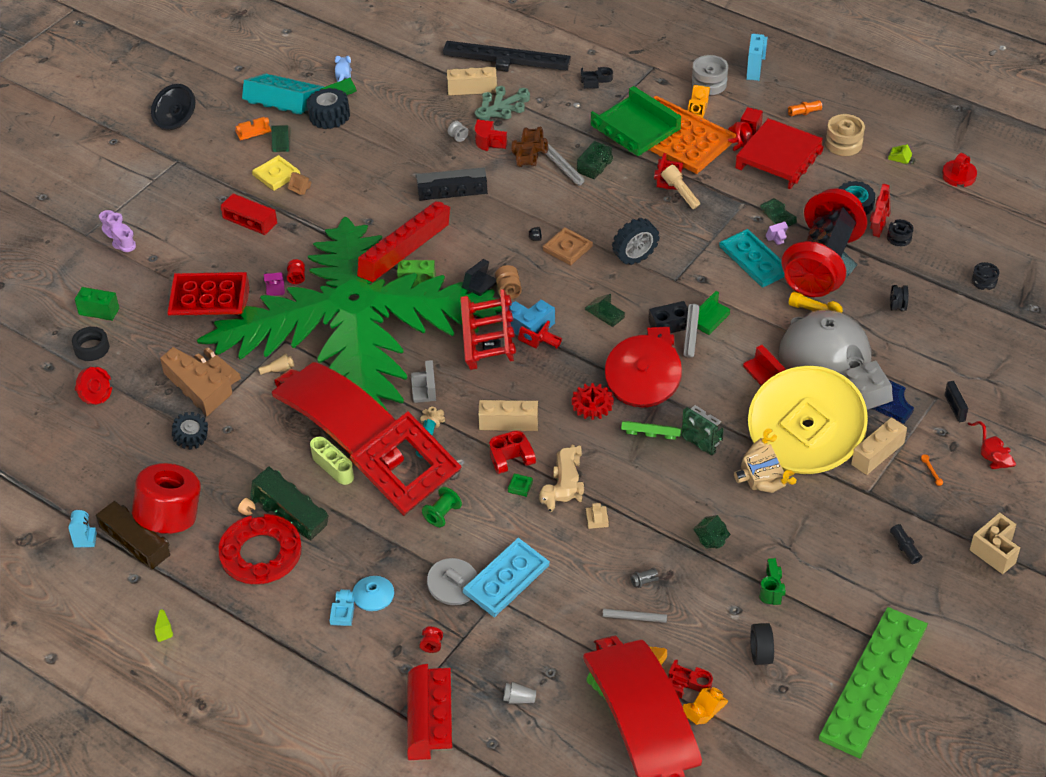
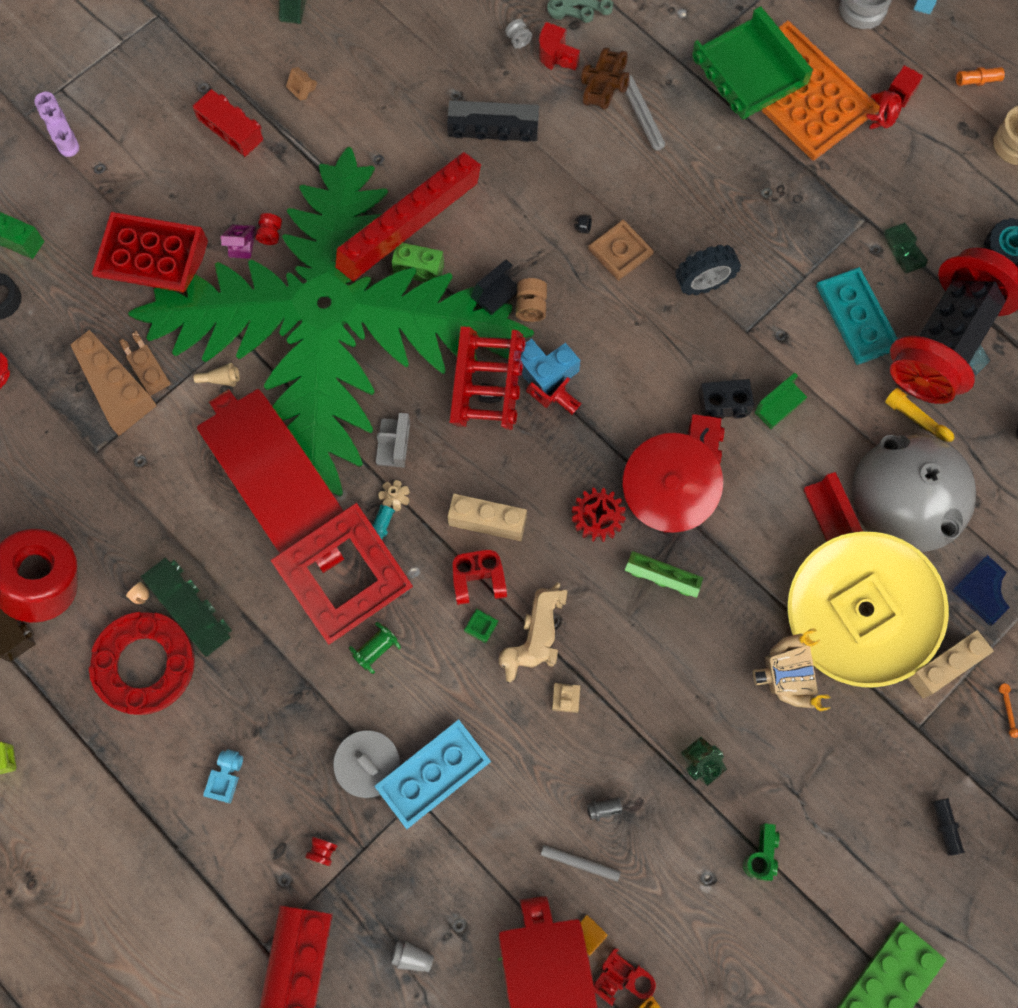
camera: 10 degrees right, 25 degrees up
(189, 430) = (89, 461): black wheel -> none
(275, 172) = (276, 57): light yellow tile -> none
(332, 460) = (247, 535): yellowish green beam -> none
(373, 599) = (280, 758): medium azure dish -> none
(594, 160) = (684, 115): clear green brick -> none
(605, 311) = (646, 366): clear green slope -> none
(662, 165) = (777, 155): red bracket -> none
(674, 178) = (780, 170): tan piece -> none
(691, 330) = (748, 428): light grey axle -> none
(699, 100) = (842, 39): light orange slope -> none
(701, 430) = (729, 602): clear green piece -> none
(762, 643) = (728, 956): black tyre -> none
(777, 233) = (897, 284): lavender tile -> none
(780, 151) = (931, 146): red panel -> none
(871, 383) = (959, 564): light grey brick -> none

